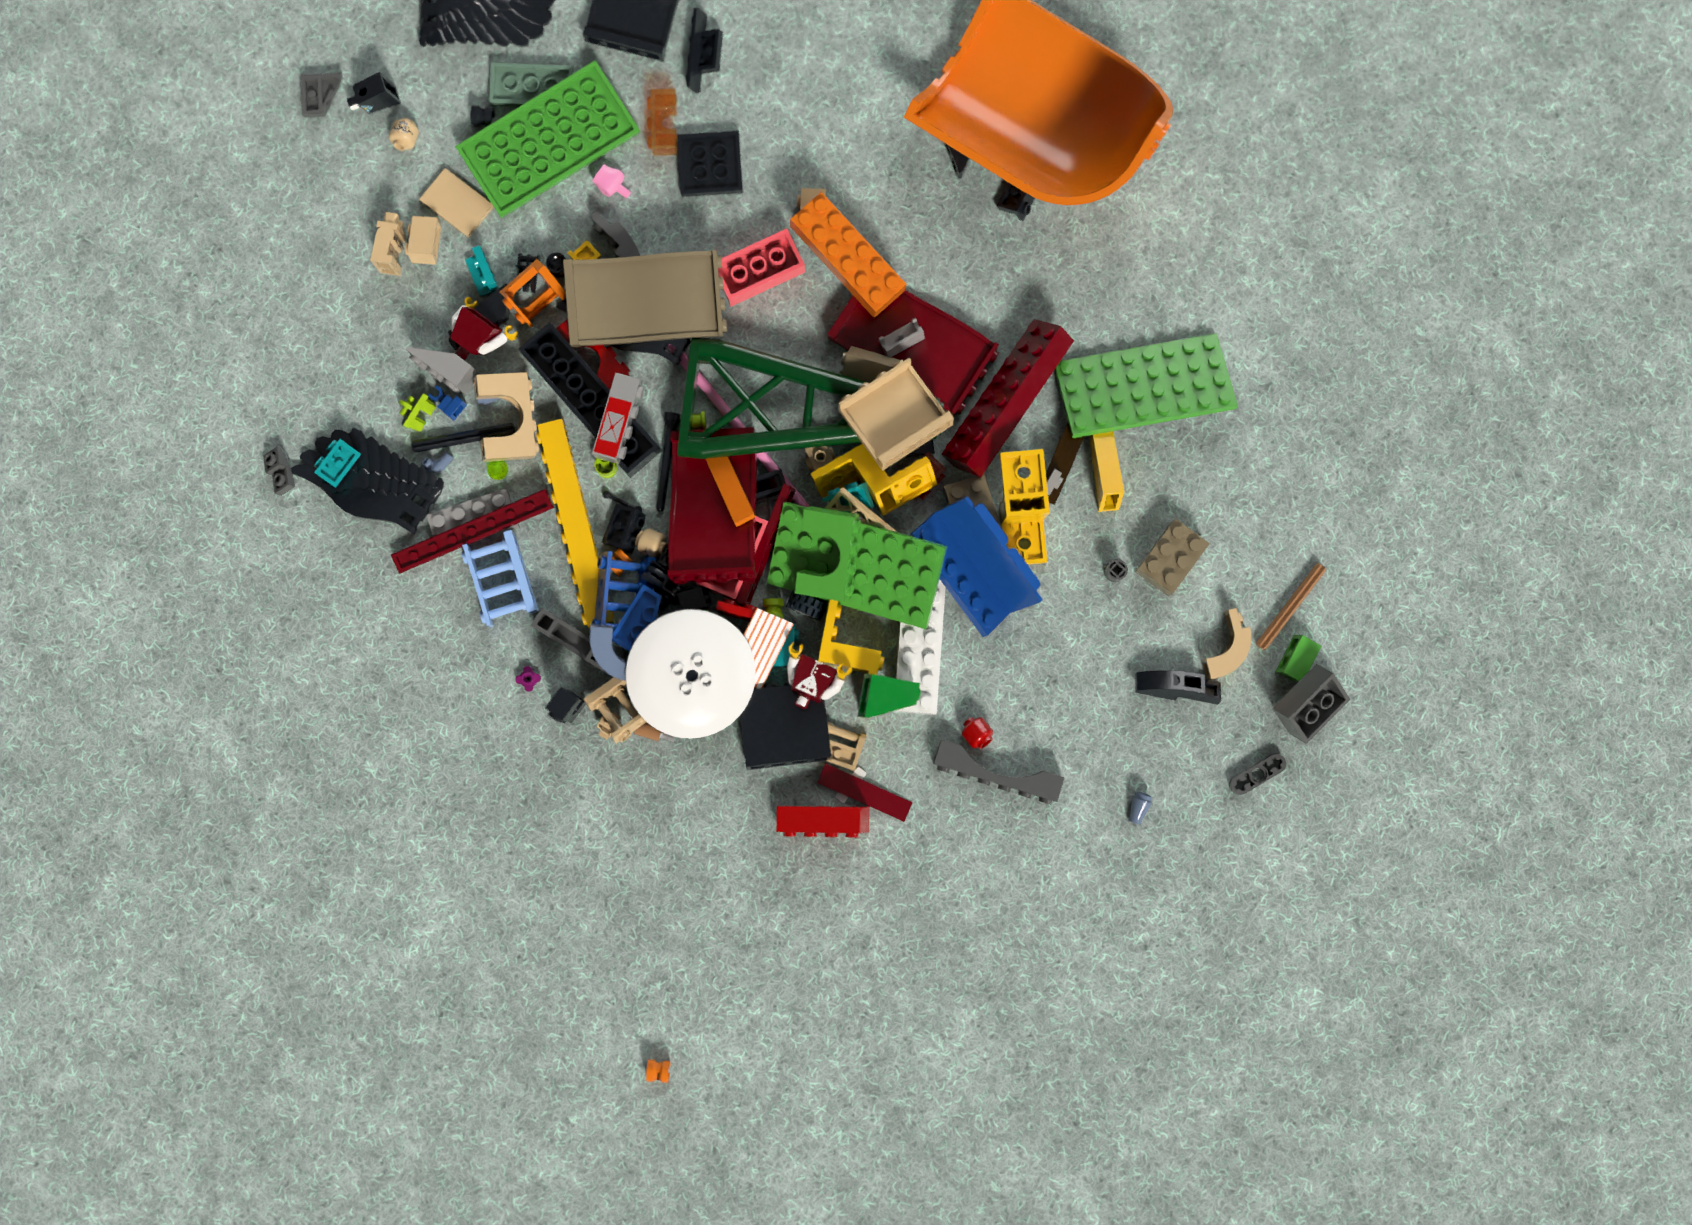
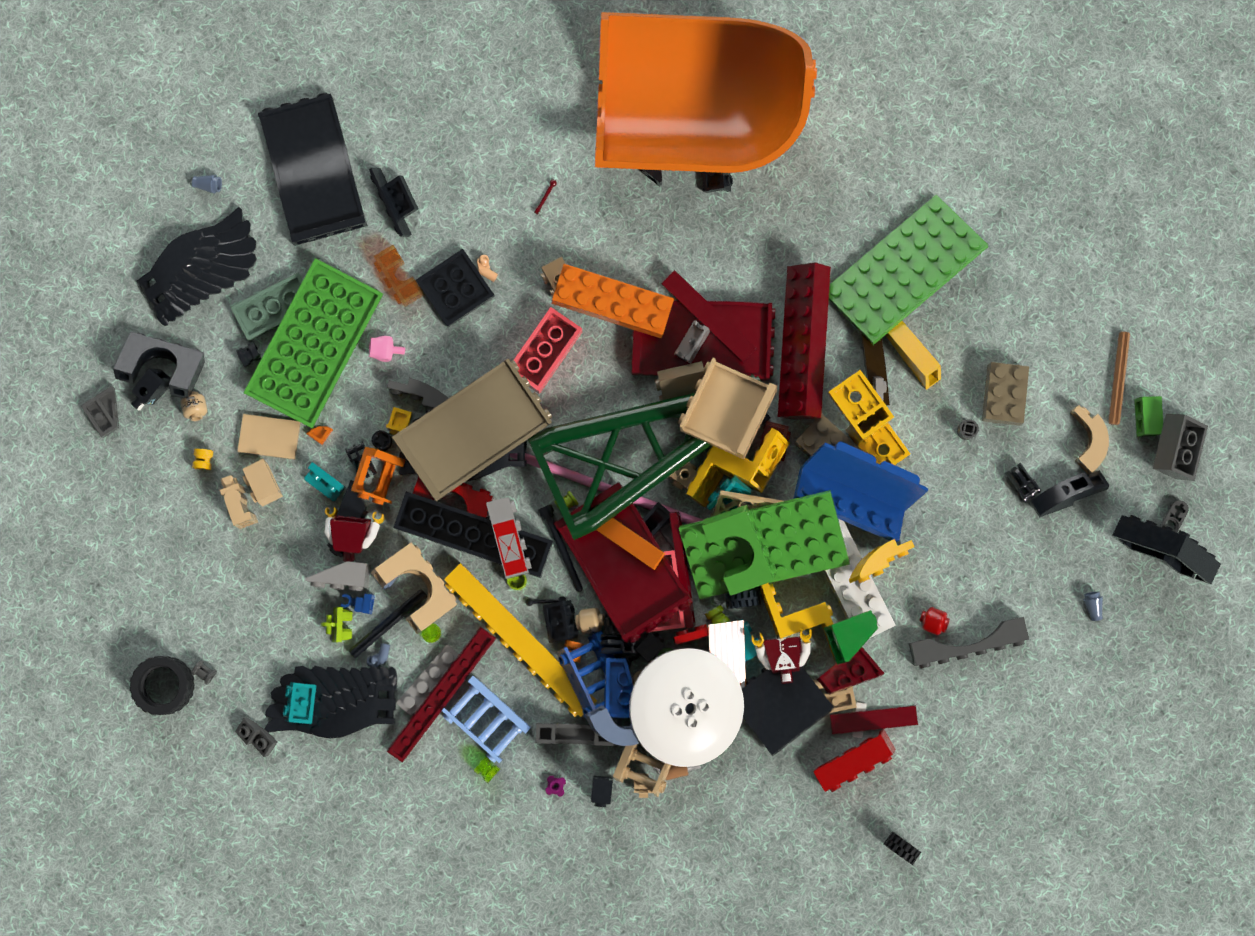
camera: 30 degrees left, 0 degrees up
(201, 356) = (138, 682): none -> black tyre
(266, 383) = (204, 672): none -> dark grey bush
(383, 187) = (202, 454): none -> yellow wheel
(386, 54) = (140, 349): none -> arch
(472, 625) = (486, 769): none -> clear neon green wheel
(505, 227) = (320, 433): none -> orange tile
(748, 161) = (484, 268): none -> light nougat arm
(818, 928) = (902, 848): none -> black tyre
(859, 119) = (553, 183): none -> dark red hinge
(870, 733) = (854, 672): none -> dark red wing
(931, 323) = (709, 316): none -> dark red tile
(956, 642) = (878, 560): none -> yellow slope
(1139, 651) = (1021, 477): none -> black arm
(1245, 791) = (1173, 548): none -> black piece

